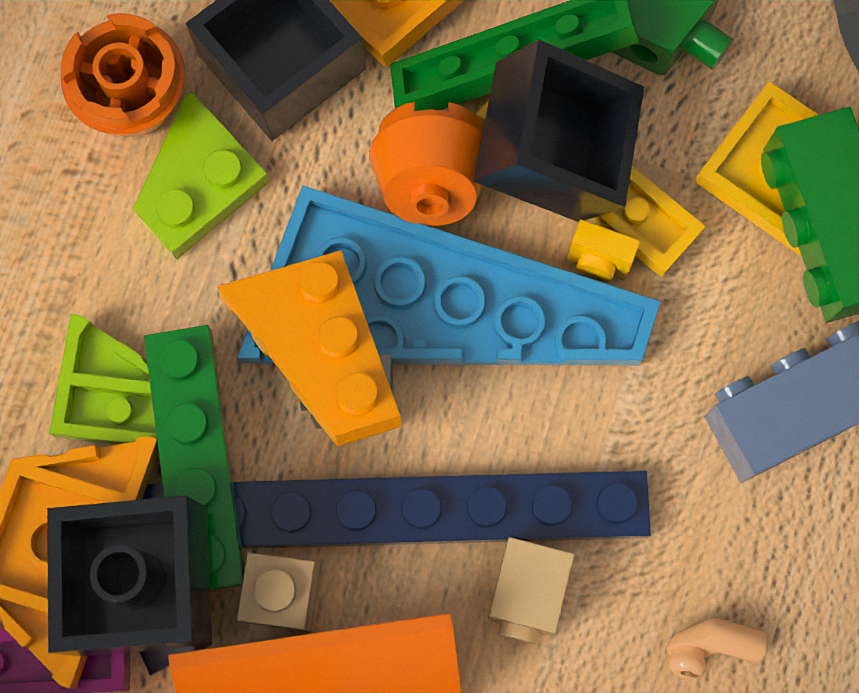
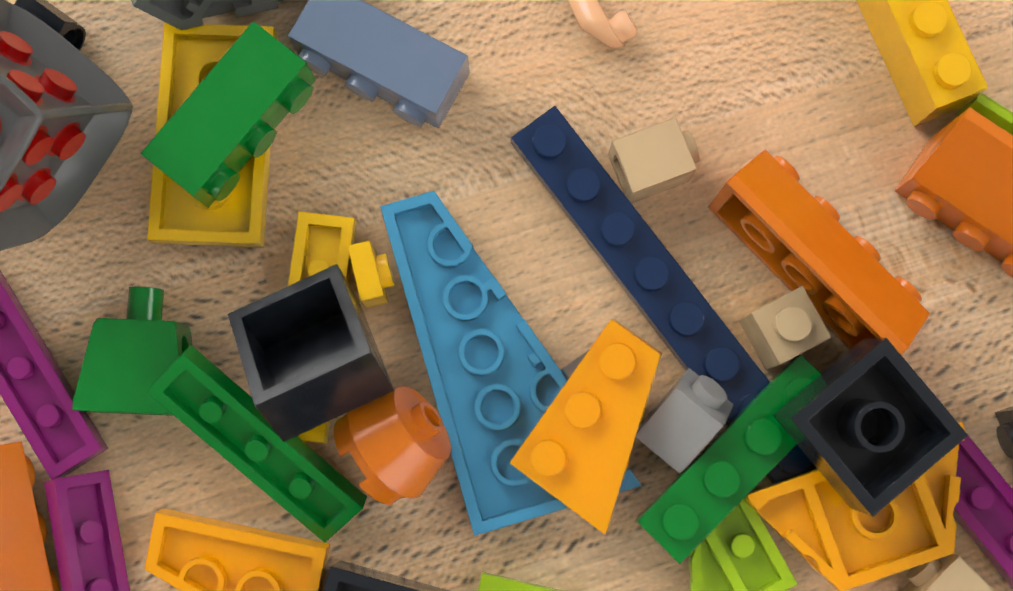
camera: 125 degrees left, 5 degrees up
(264, 436) = (685, 419): none -> light grey brick

